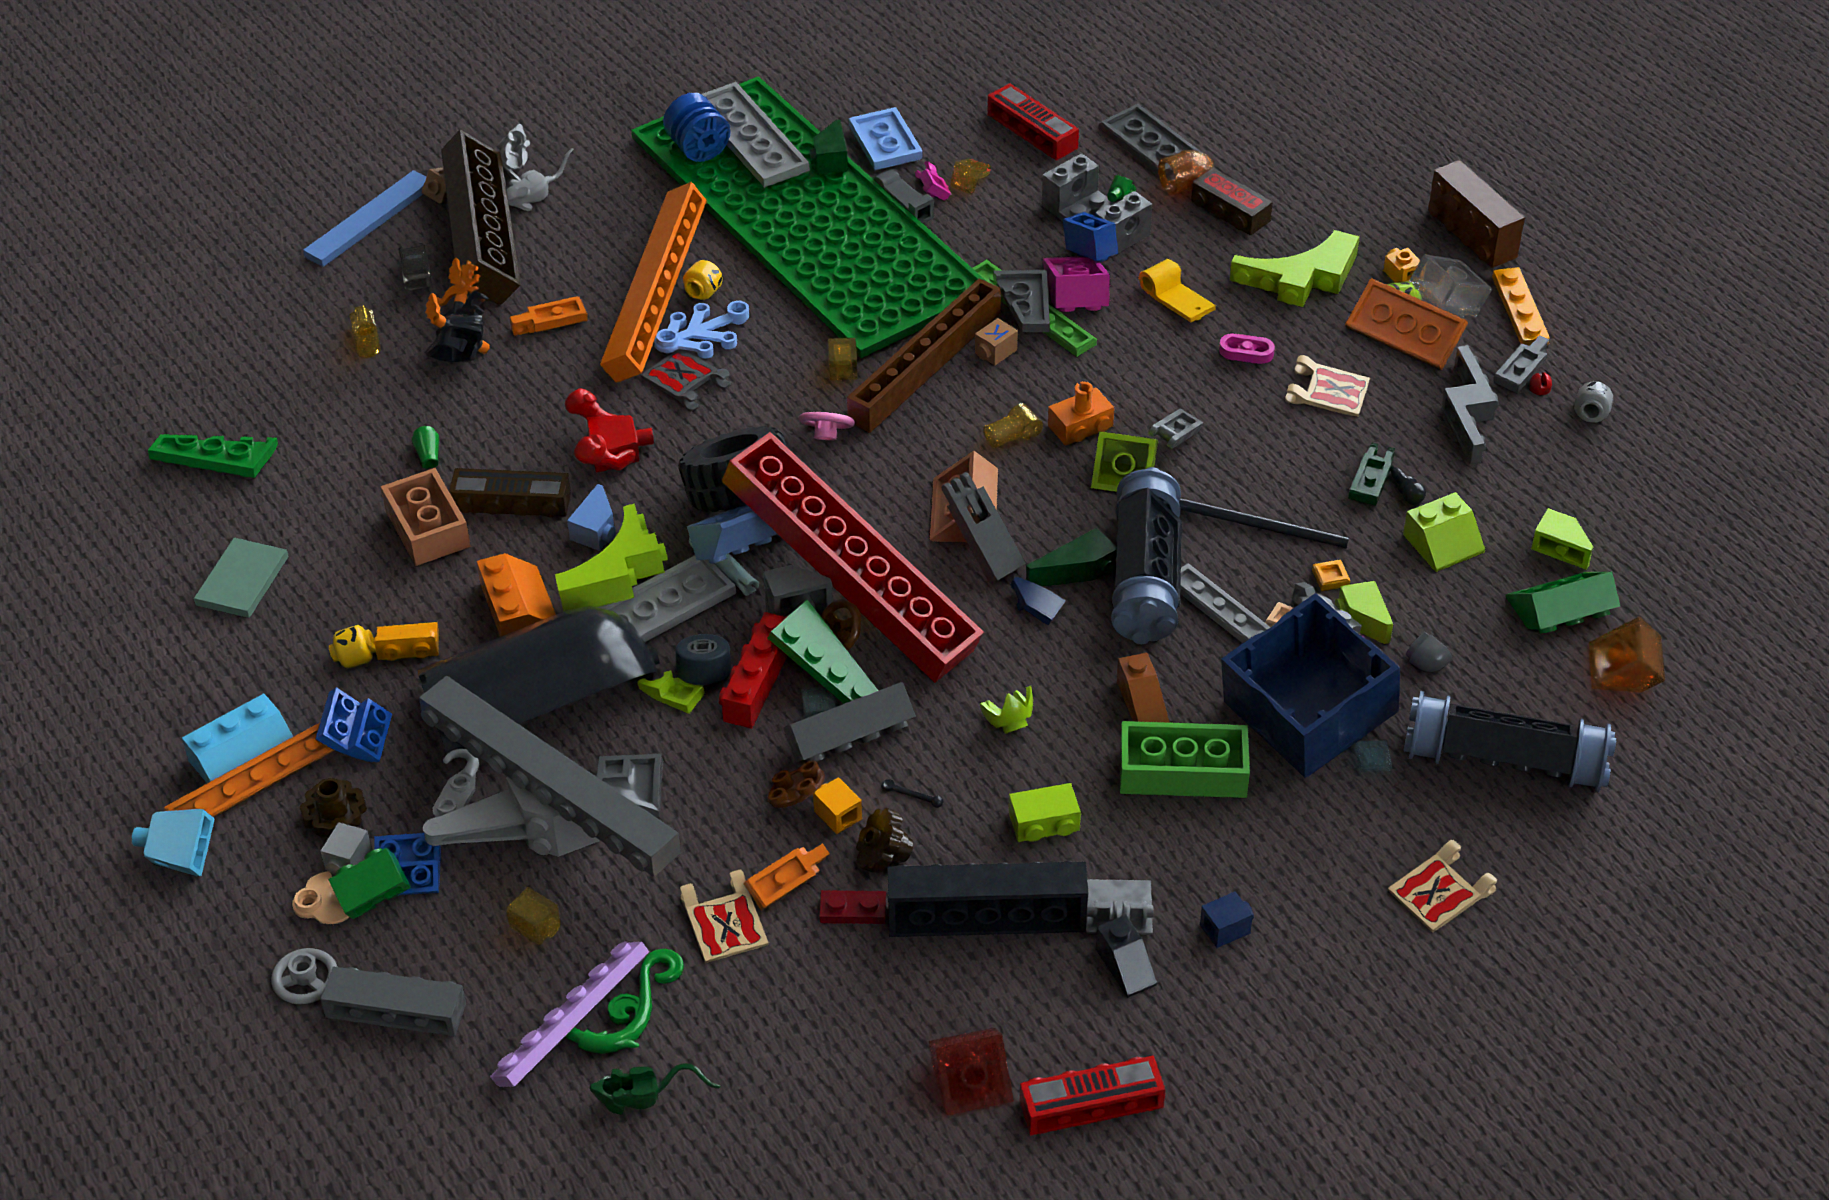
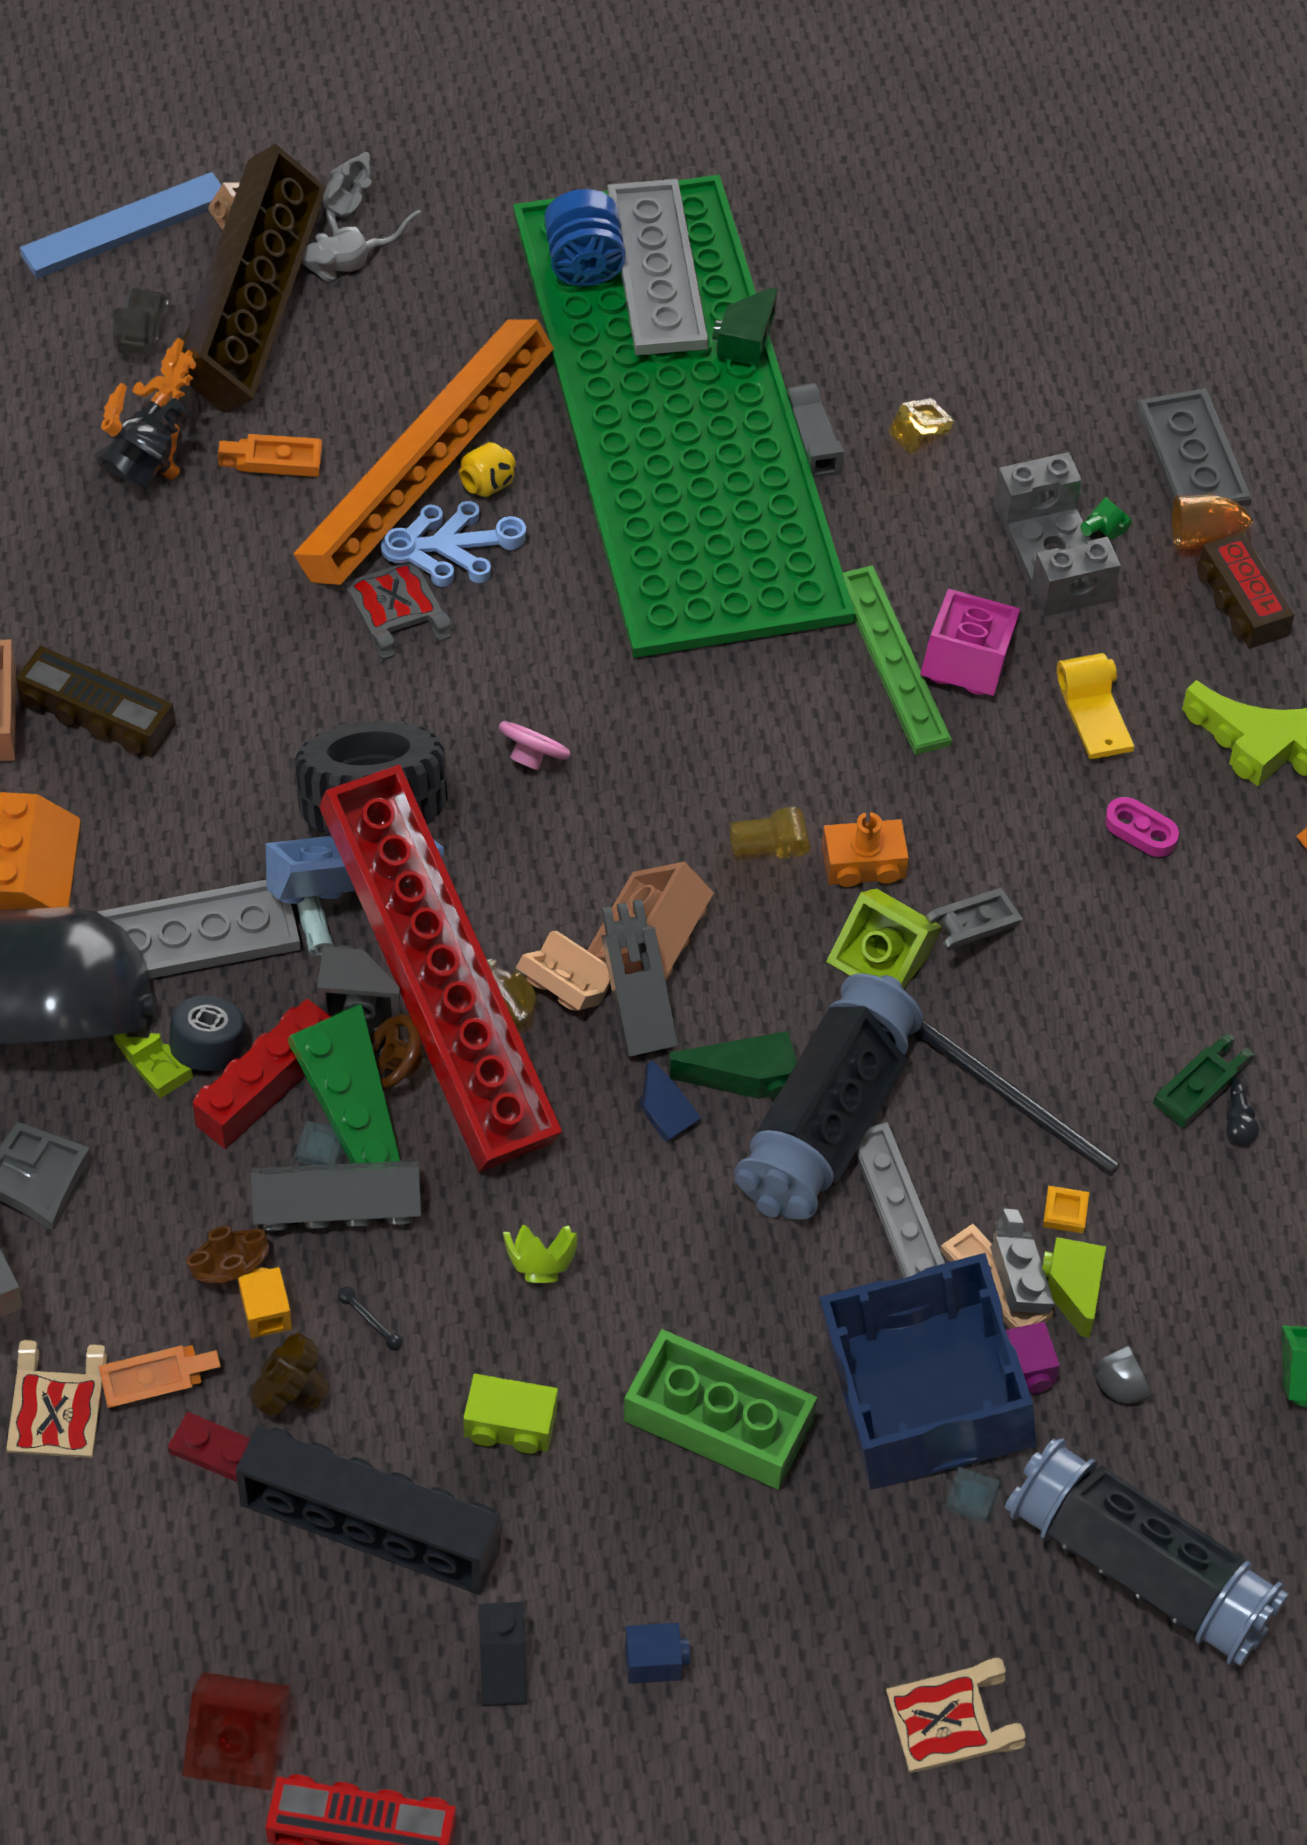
camera: 20 degrees right, 10 degrees up
(365, 332) = (35, 398): clear yellow piece -> none
(426, 444) = (30, 594): green cone -> none
(593, 521) = (176, 779): medium blue slope -> none
(611, 437) = (256, 667): red torso -> none
(614, 570) = (153, 869): lime arch -> none
(842, 358) = (604, 653): clear yellow brick -> none
(885, 138) = (838, 329): light blue plate -> none
(924, 355) = (708, 687): reddish brown brick -> none
(928, 542) = (567, 971): none -> light nougat bracket
(933, 184) = (862, 420): dark pink plate -> none
(996, 341) = (814, 698): medium nougat brick -> none
(1026, 297) = (887, 647): dark grey wing -> none
(1033, 121) = (1047, 370): red brick -> none
(1090, 236) = (1018, 583): blue brick -> none
(1118, 898) = (539, 1575): flat silver hinge -> none
(1141, 689) = (722, 1294): dark orange slope -> none
(1328, 388) = (1224, 929): tan flag -> none
(1444, 532) = (1246, 1205): lime slope -> none

